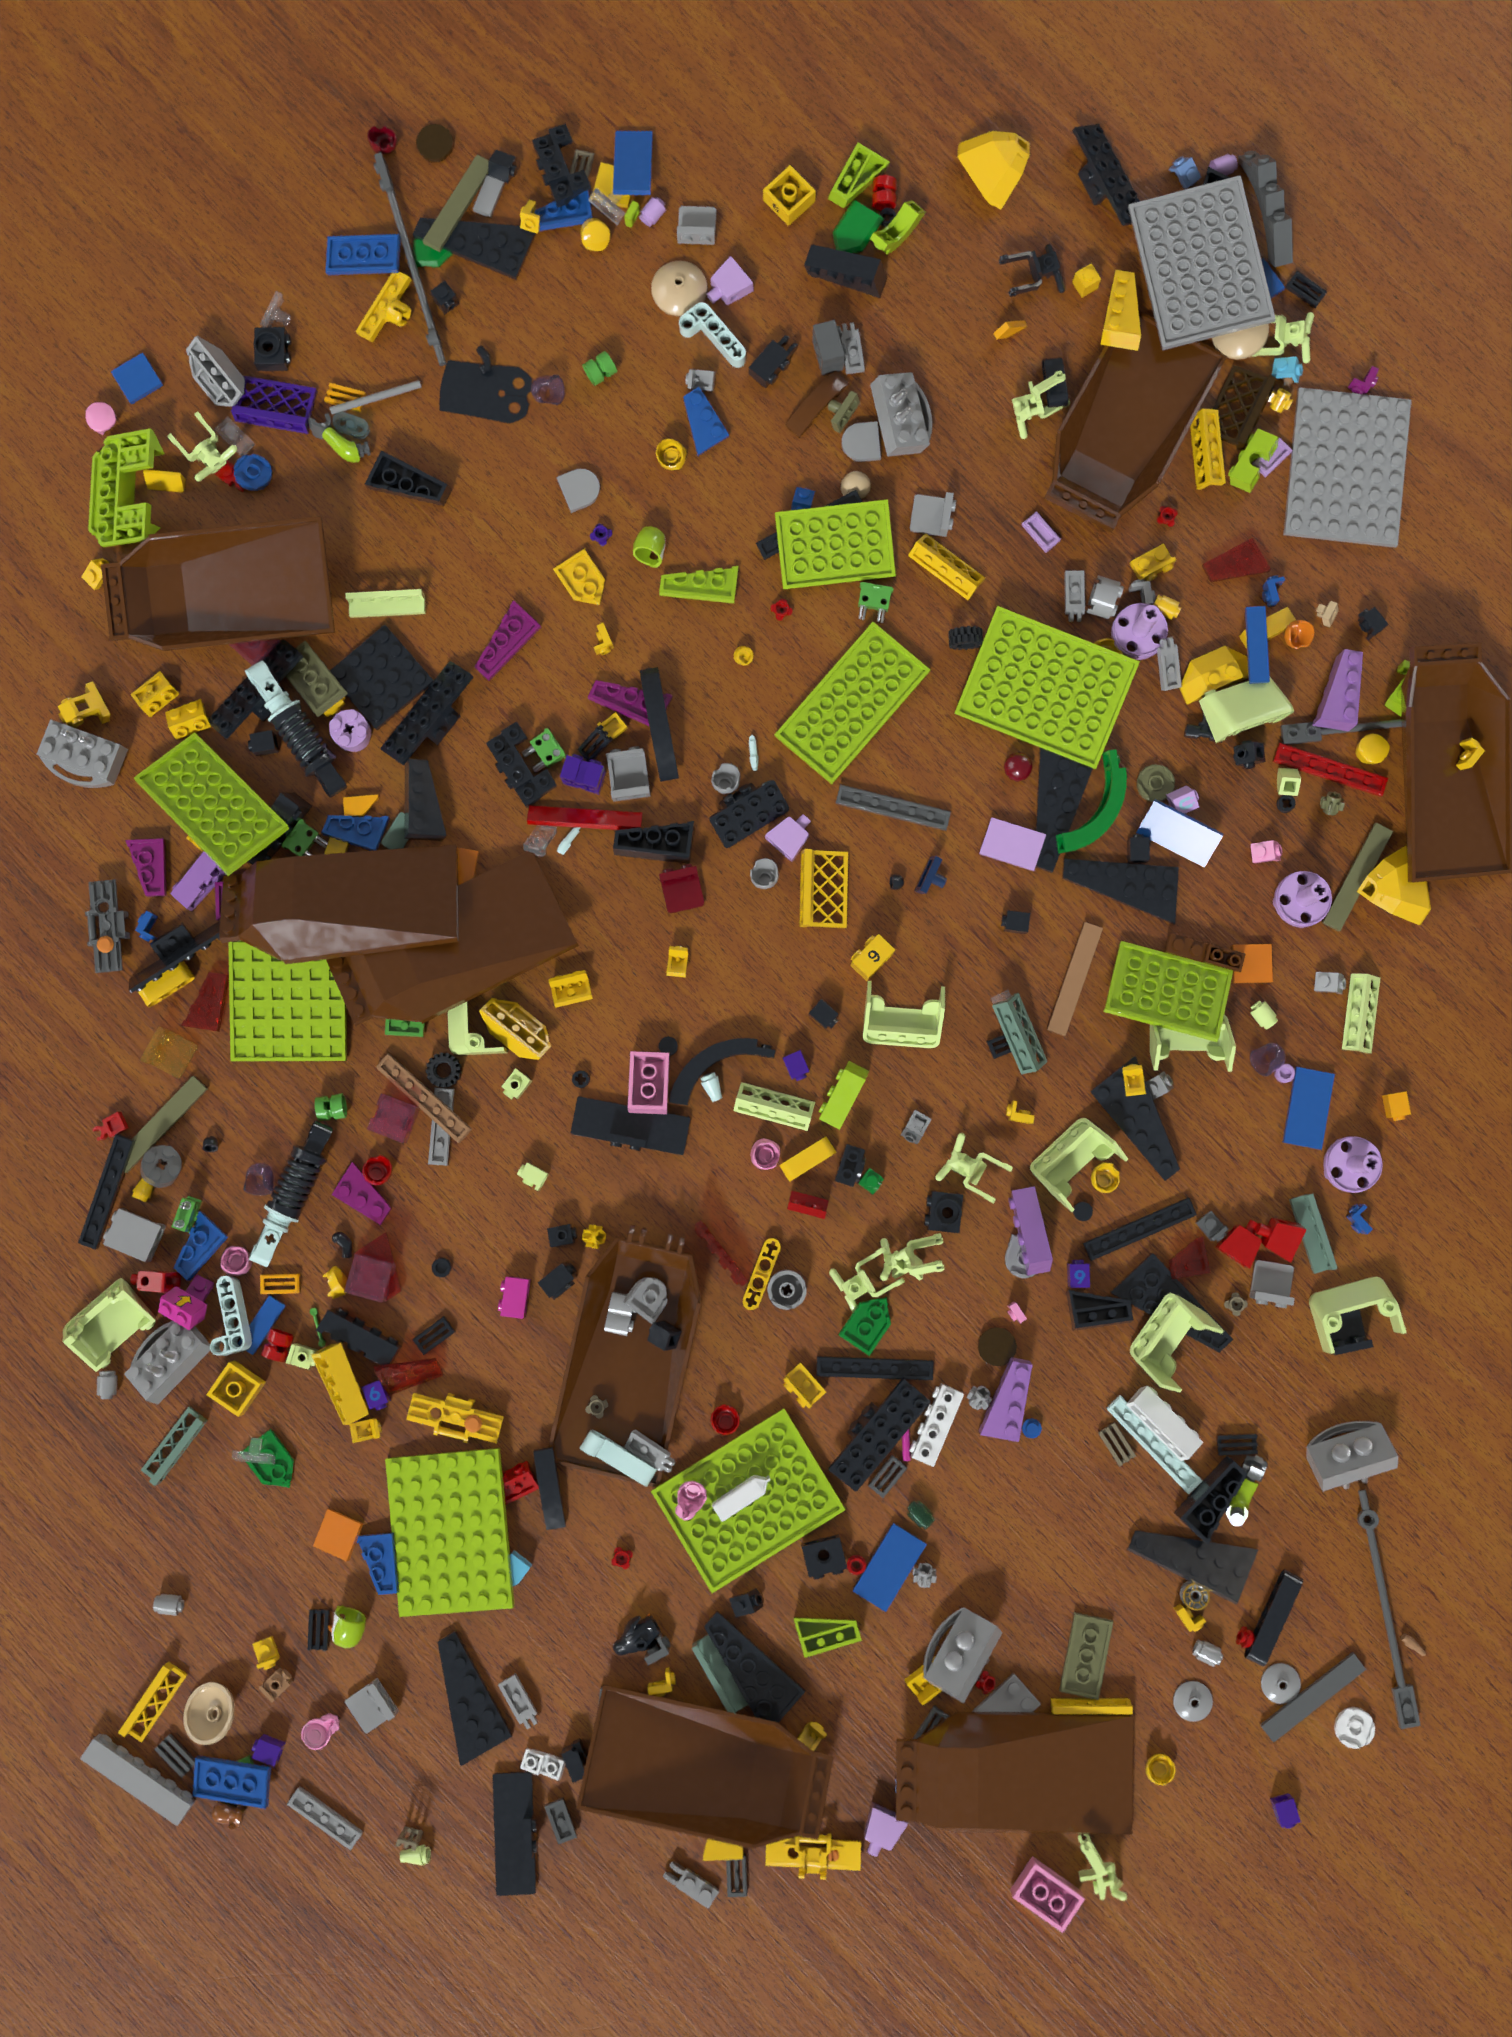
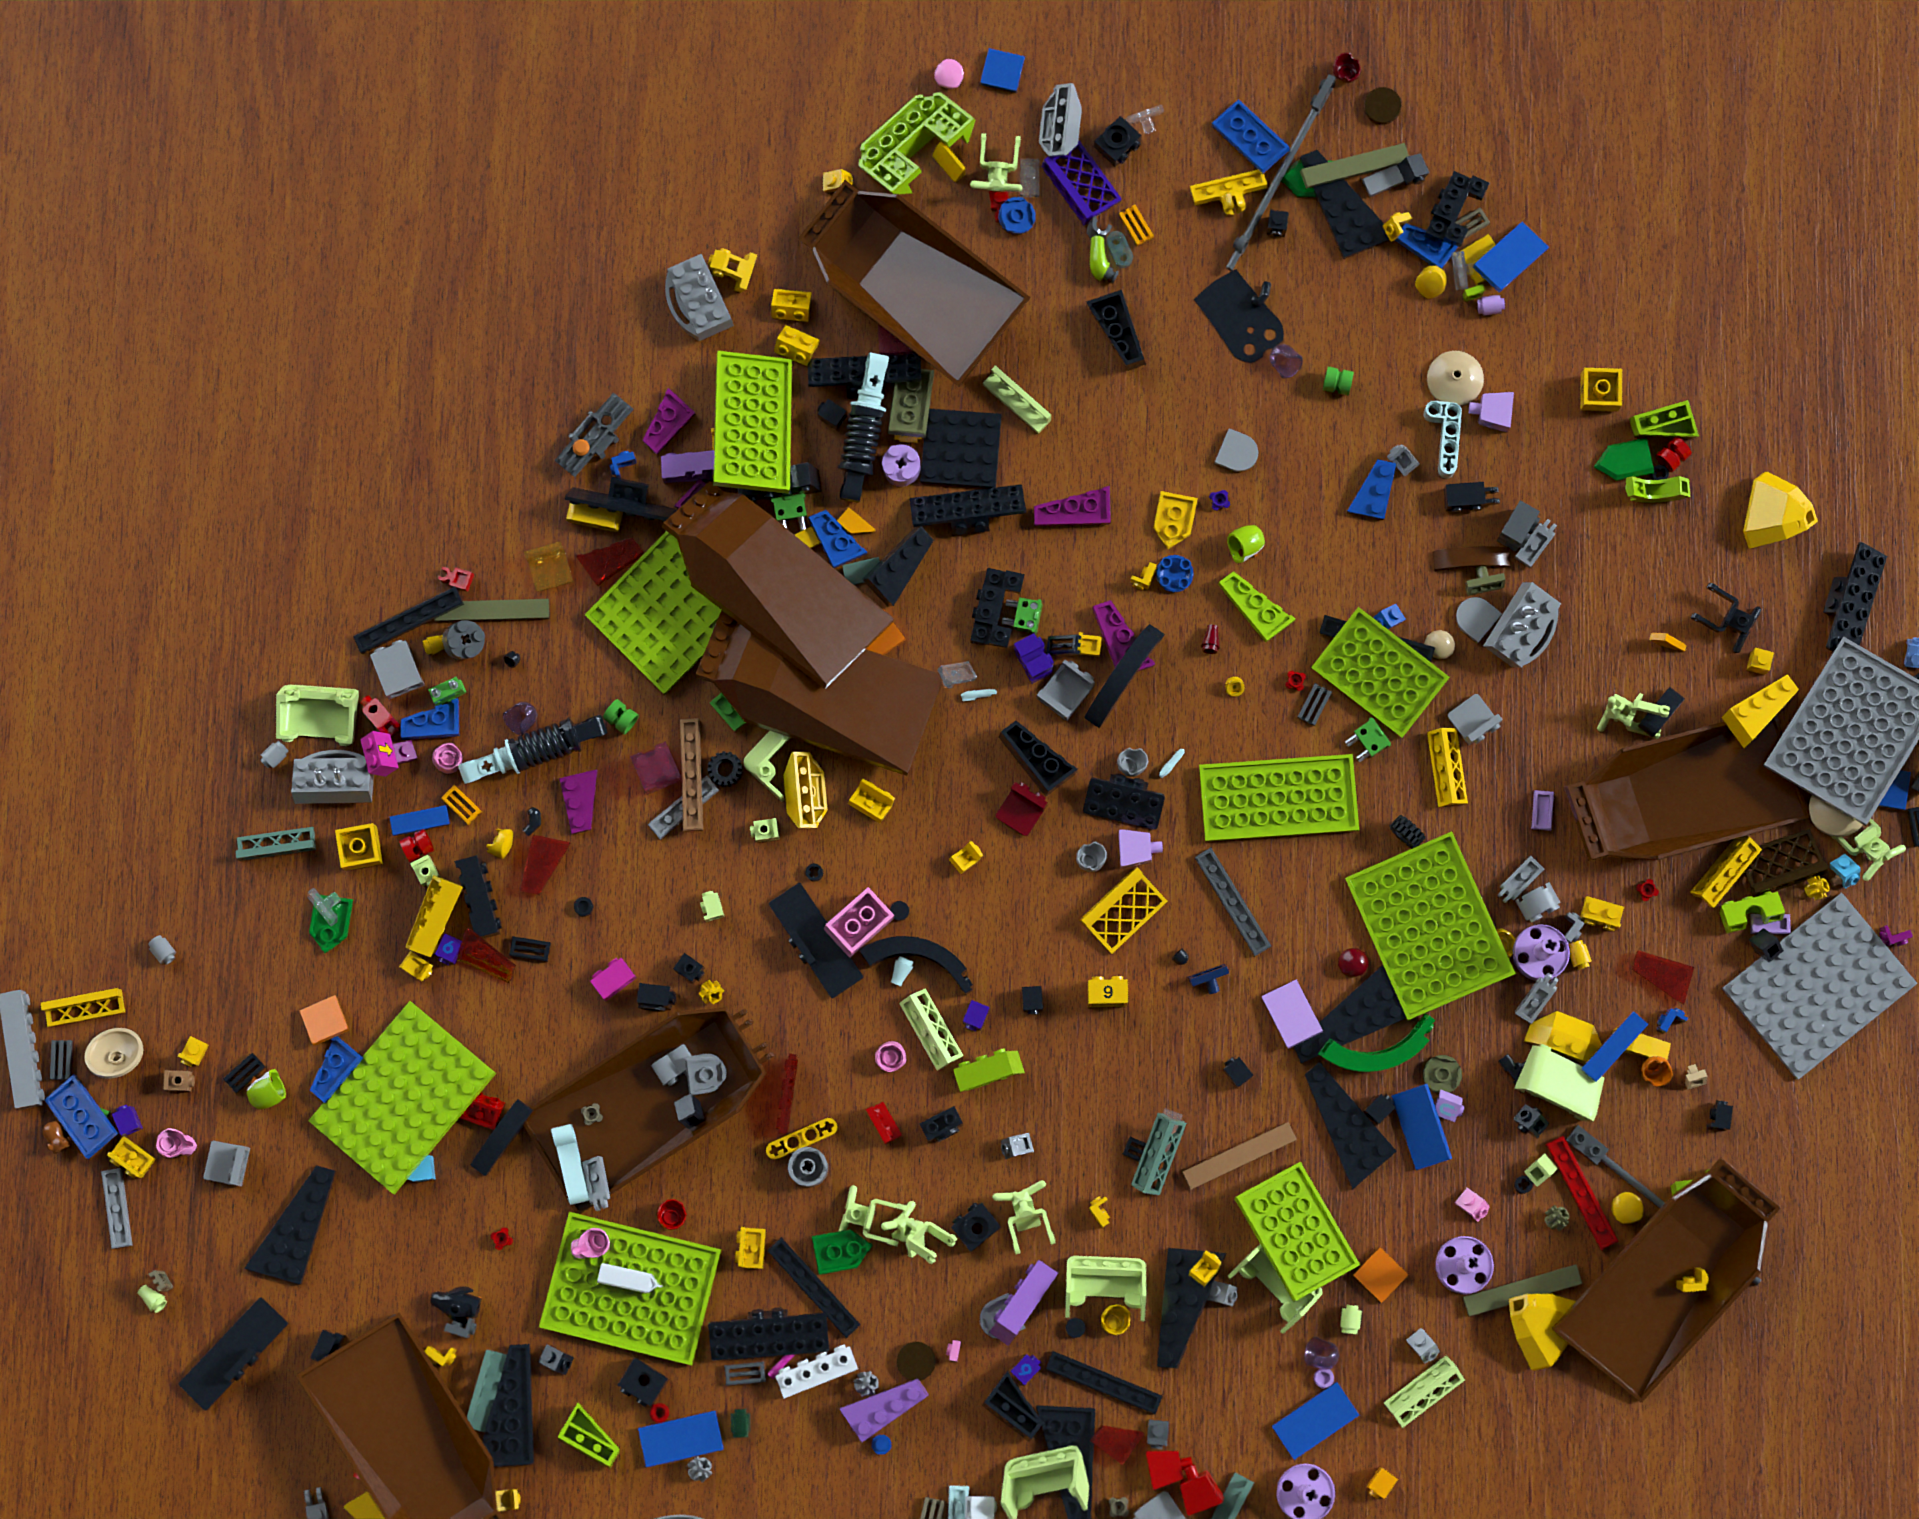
camera: 45 degrees right, 5 degrees down
(229, 1315) = (405, 791): light aqua beam -> none
(298, 1773) = (131, 1157): none -> yellow bracket
(313, 1311) = (464, 848): bright green hinge -> none
(370, 1277) = (528, 862): clear pink piece -> none
(375, 397) = (1156, 246): light grey piece -> none
(377, 1170) = (608, 793): red hair -> none
(458, 1412) = (493, 1019): yellow piece -> none
(518, 1700) = (330, 1264): light grey hinge -> none
(543, 1763) = (302, 1326): white slope -> none
(561, 1820) = (274, 1378): dark grey plate -> none
(583, 818) = (1003, 689): red tile -> none
(621, 617) = (1174, 573): none -> blue dish
(671, 454) = (1327, 492): yellow hair -> none
(695, 639) = (1210, 643): none -> dark red cone
(696, 225) = (1512, 345): light grey bracket -> none
(806, 598) = (1321, 690): none -> dark grey tile
(807, 1158) = (917, 1090): yellow beam -> none
(847, 269) = (1589, 483): black wedge -> none
(871, 1181) = (945, 1151): green brick -> none
(903, 1025) = (1080, 1063): yellowish green windscreen -> none
(1204, 952) = (1352, 1231): reddish brown slope -> none
(1286, 473) = (1766, 945): none -> black brick
(1342, 694) = (1643, 1145): medium lavender wedge -> none

